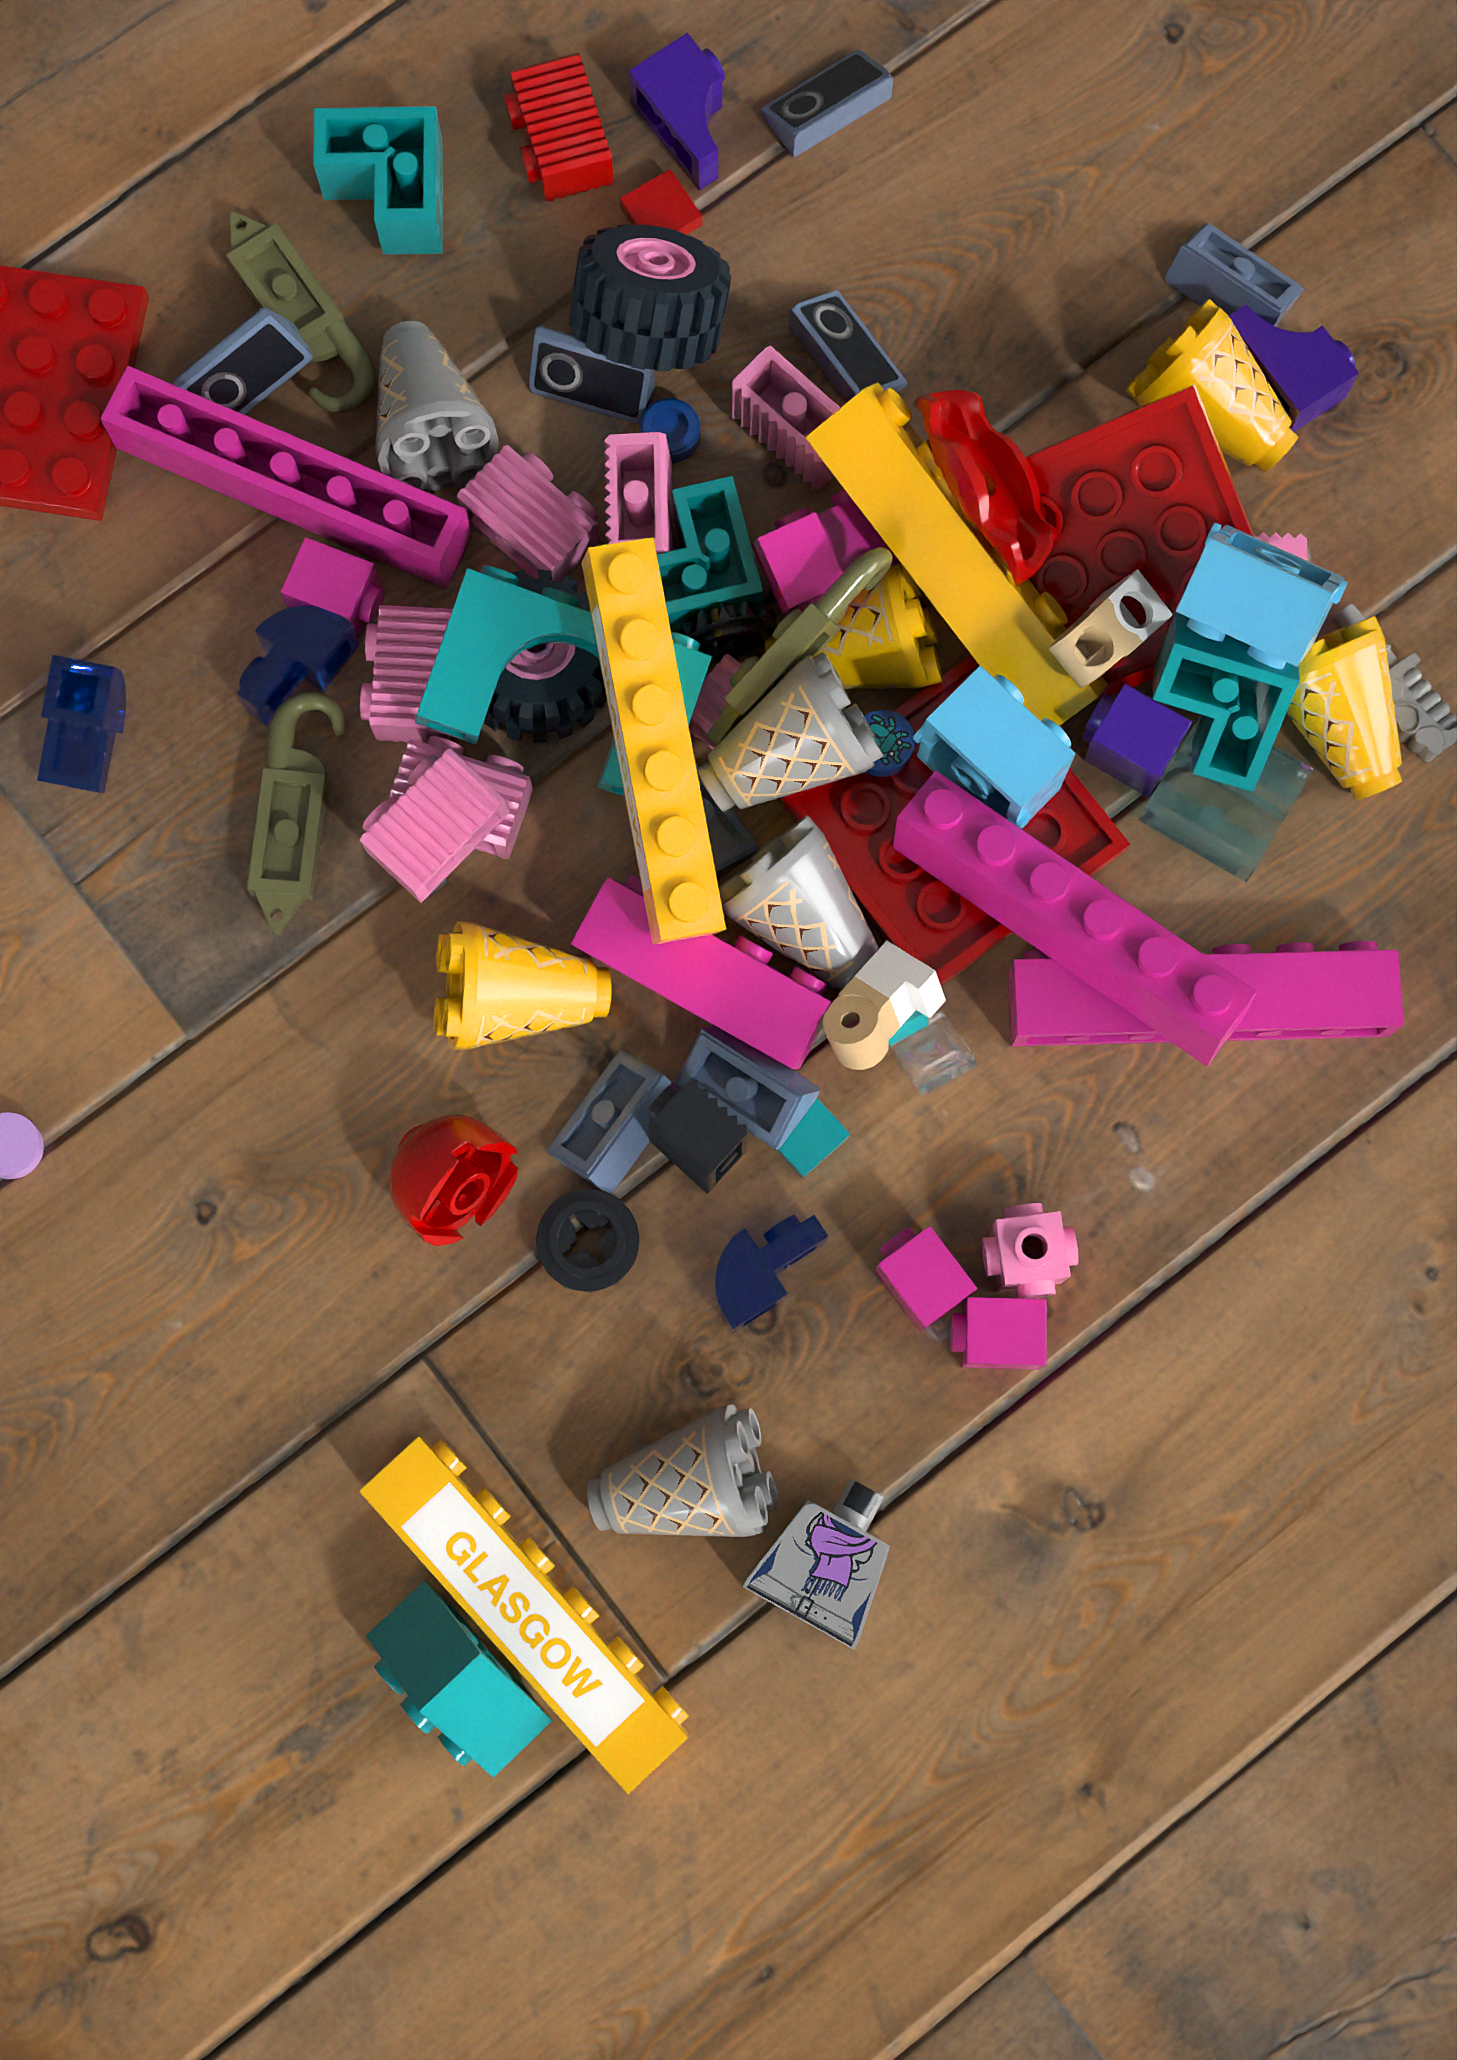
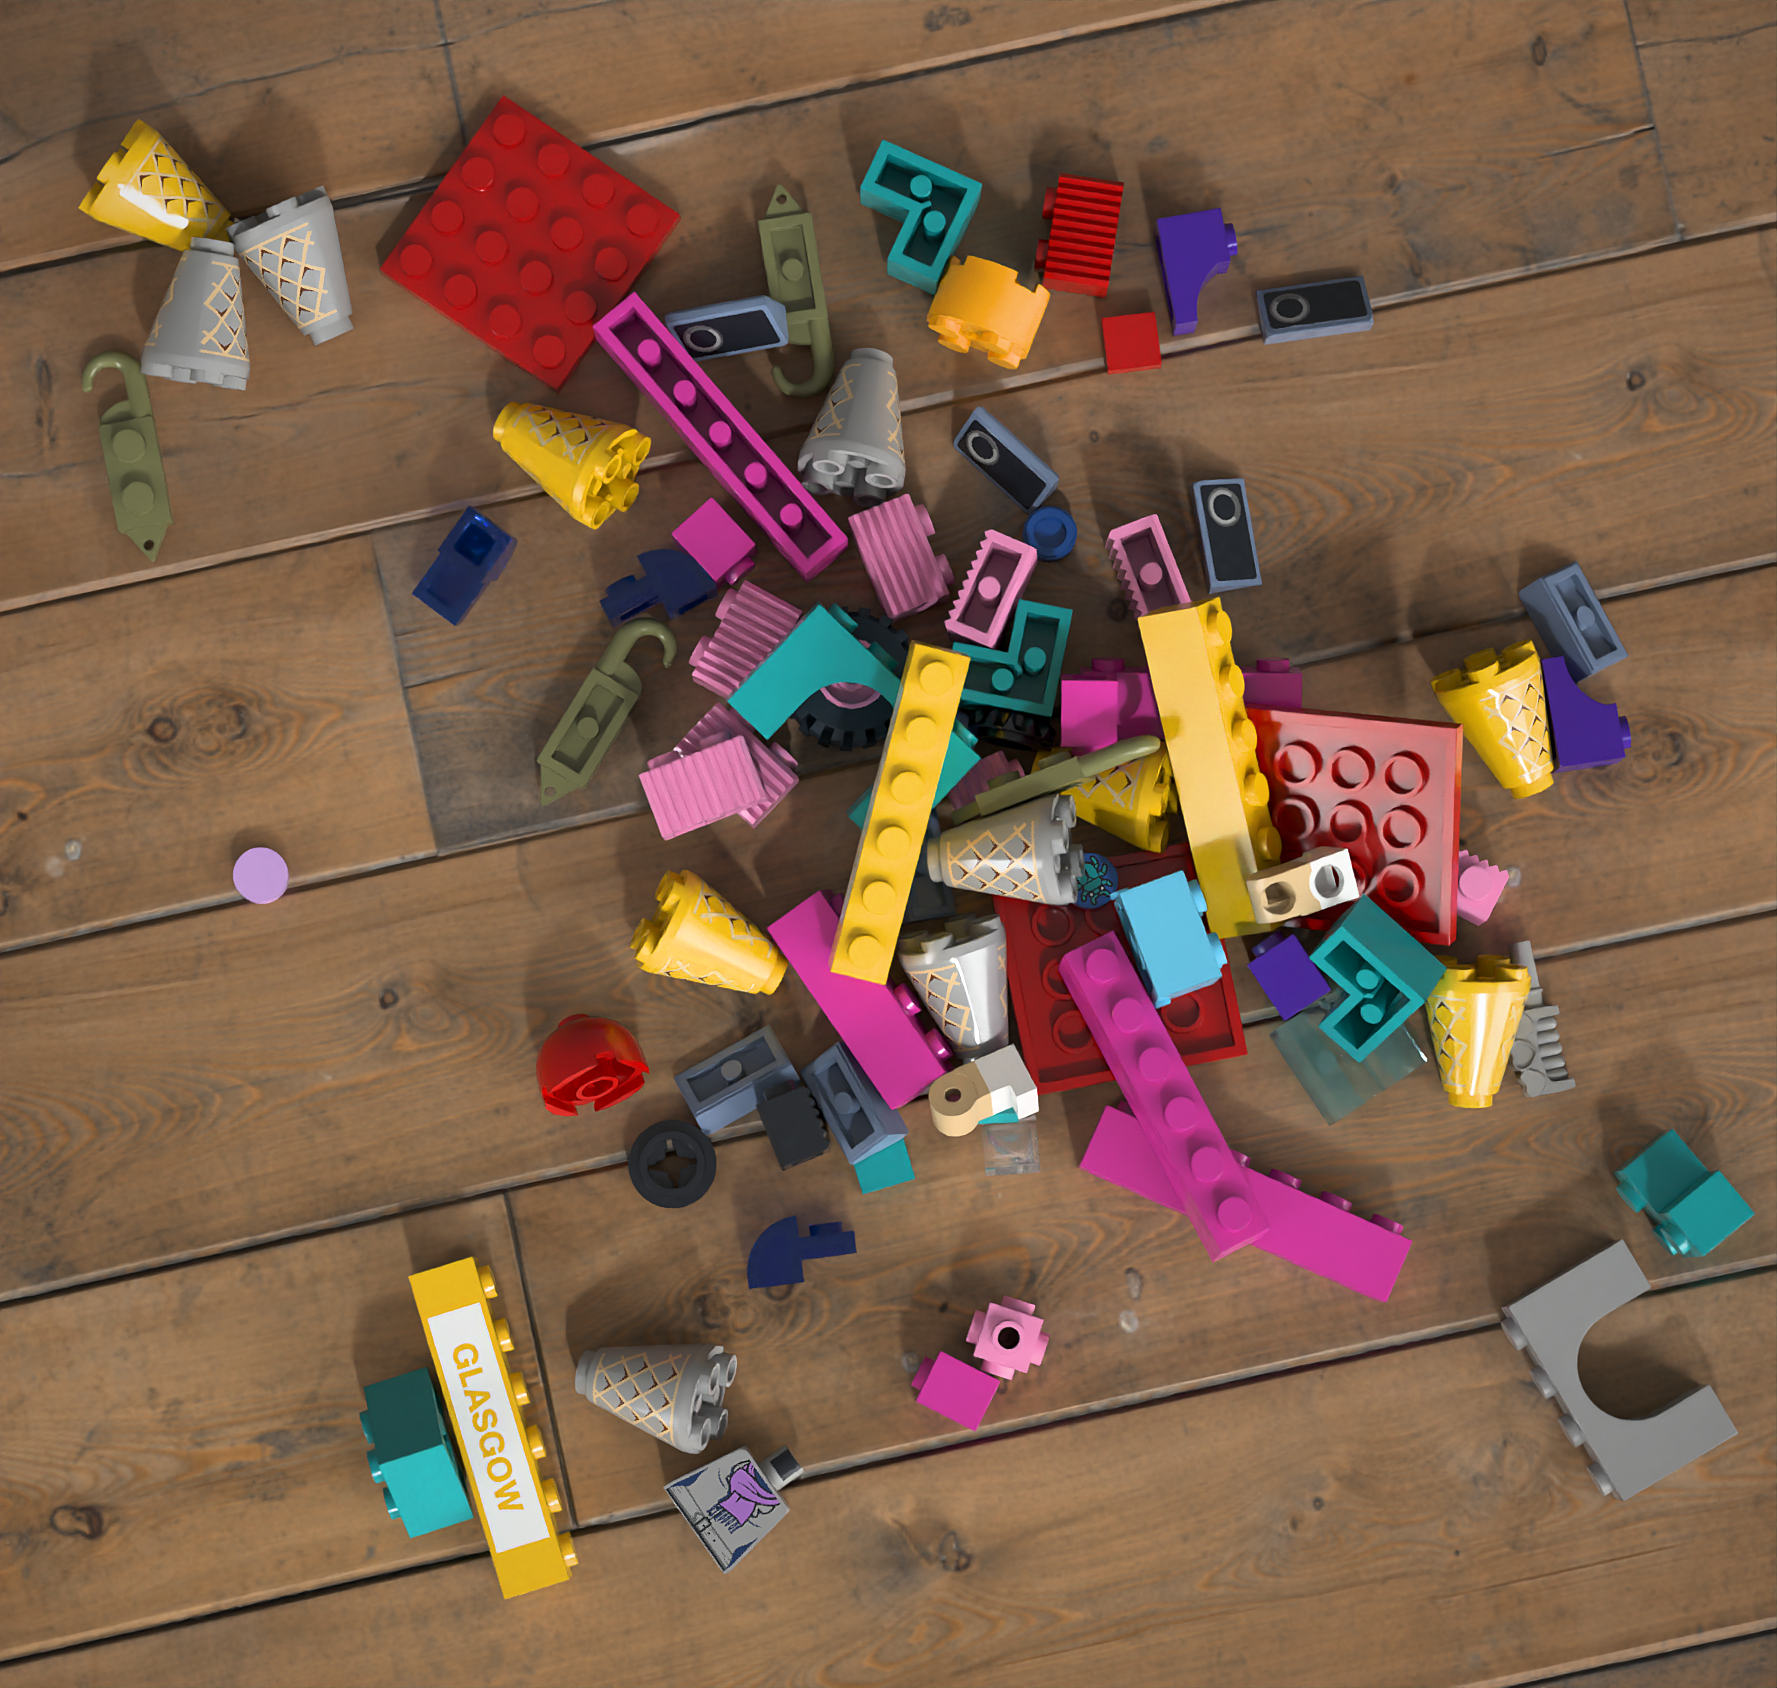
camera: 25 degrees right, 5 degrees up
(146, 565) = (575, 458): none -> yellow cone
(500, 231) = (986, 310): none -> light orange brick
(649, 297) = (1079, 425): black wheel -> none
(923, 1276) = (917, 1316): dark pink brick -> none
(988, 479) = (1264, 680): red piece -> none
(1259, 596) = (1426, 920): medium azure brick -> none

